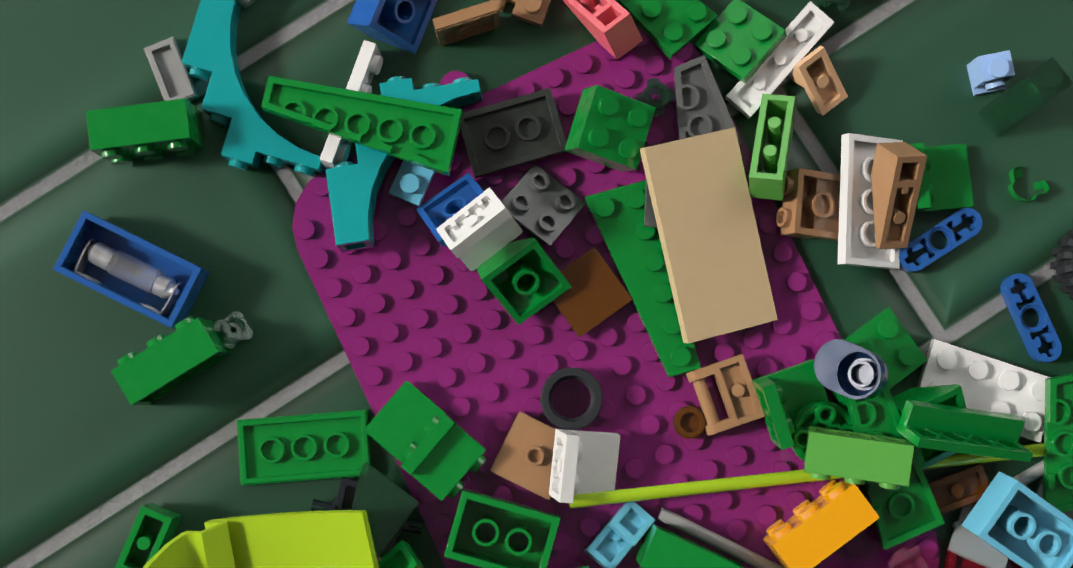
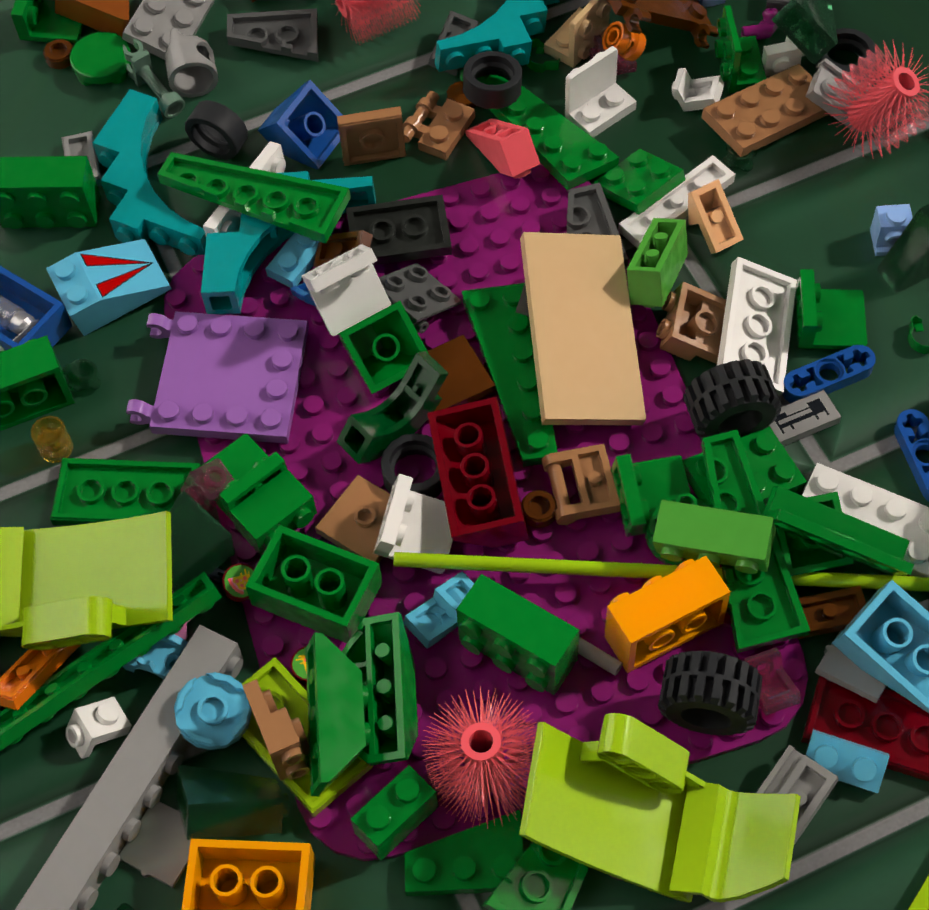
camera: 15 degrees right, 25 degrees down
(216, 404) = (51, 439): none -> clear yellow wheel
(235, 224) = (107, 282): none -> medium azure slope
(305, 30) = (216, 130): none -> black tyre
(375, 316) = (225, 376): none -> medium lavender plate
(384, 446) = (207, 483): none -> bracket
(432, 534) = (235, 580): none -> tile
(468, 174) = (339, 244): none -> reddish brown plate
(544, 349) = (401, 414): none -> dark green arch
(609, 128) = (493, 229): green brick -> none
(631, 406) = (477, 474): none -> dark red slope
(655, 87) = (544, 209): clear green plate -> none
(850, 370) = (715, 447): cap -> none
(858, 299) = (732, 398): none -> black tyre
(895, 192) = (781, 313): medium nougat slope -> none
(917, 291) = (805, 418): none -> light grey tile

